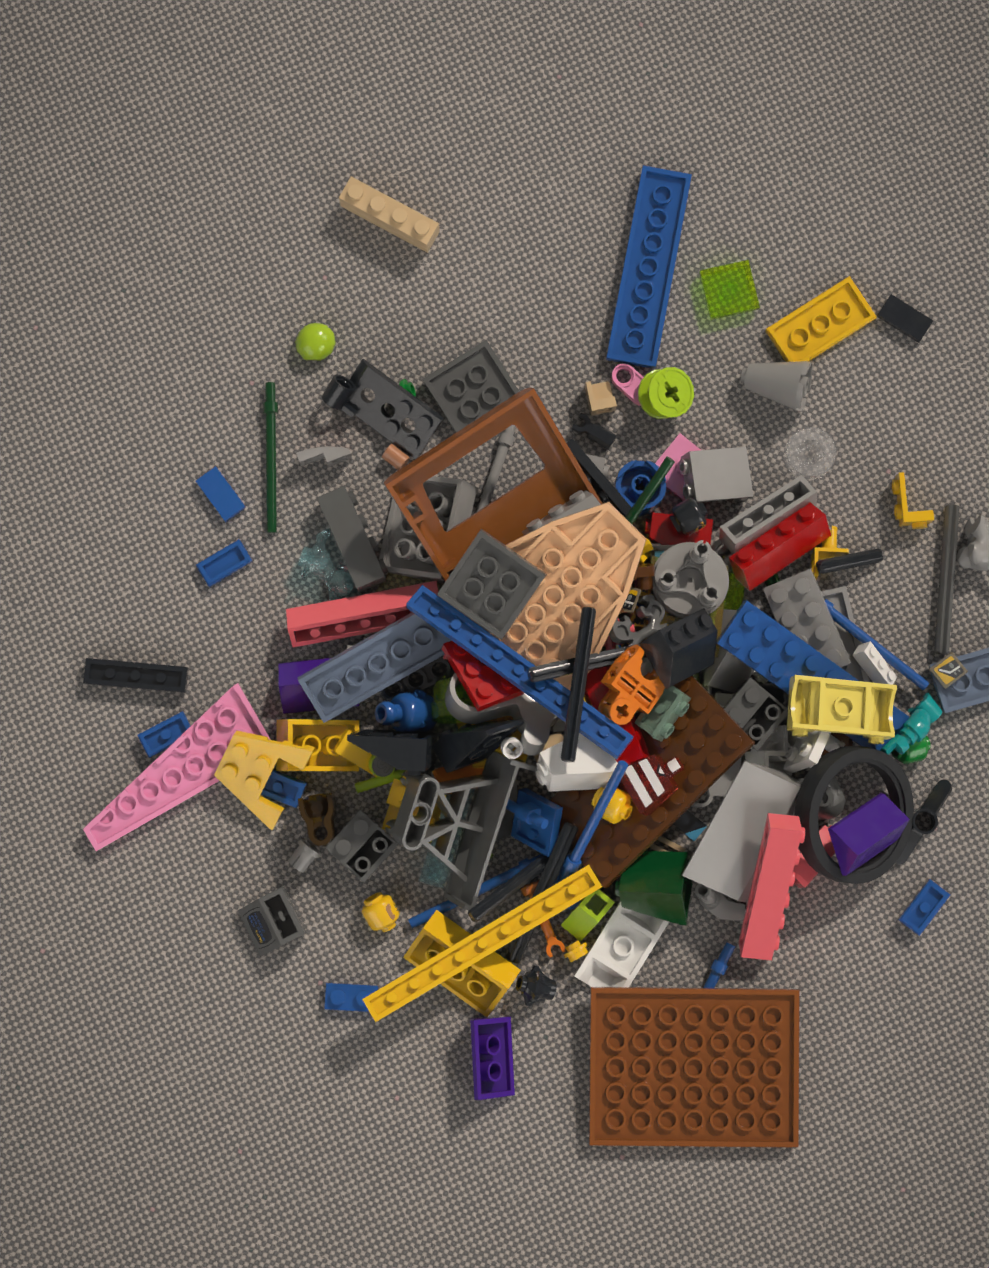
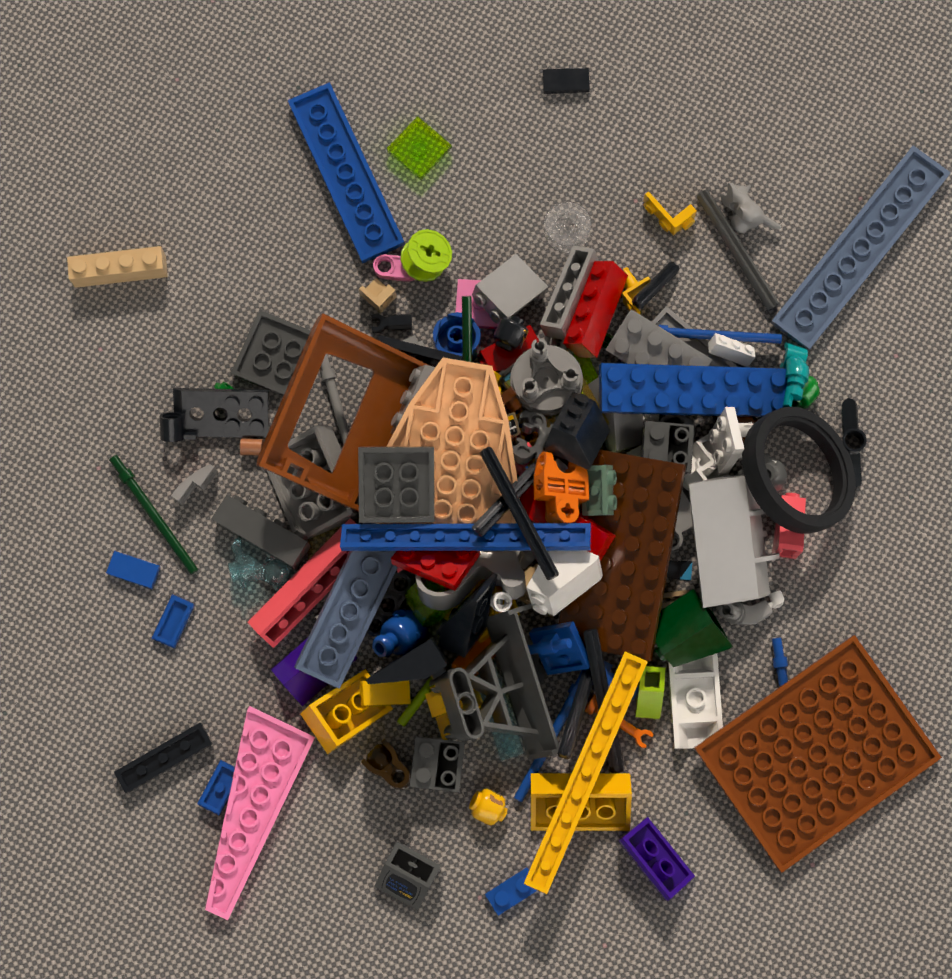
camera: 30 degrees left, 5 degrees down
(249, 765) = (303, 763): yellow wing -> none
(284, 788) = (337, 765): blue plate -> none
(304, 855) = (396, 805): light grey bush -> none
(315, 341) = (126, 402): lime hair -> none
(380, 768) = (408, 691): tile -> none
(536, 986) = (651, 778): black rock -> none
(573, 860) = (610, 658): blue bar -> none
(576, 950) = (661, 728): yellow plate -> none
(618, 808) = (610, 590): yellow head -> none
(651, 782) = (628, 551): clear red torso -> none
(770, 886) = (776, 568): coral brick -> none
(780, 382) = (506, 189): light grey cone -> none
(821, 322) = (506, 127): yellow tile -> none
(841, 707) = (730, 394): light yellow piece -> none
(866, 832) = (819, 475): dark purple slope -> none
(924, 907) = (901, 506): blue plate -> none
(948, 670) = (789, 314): slope -> none

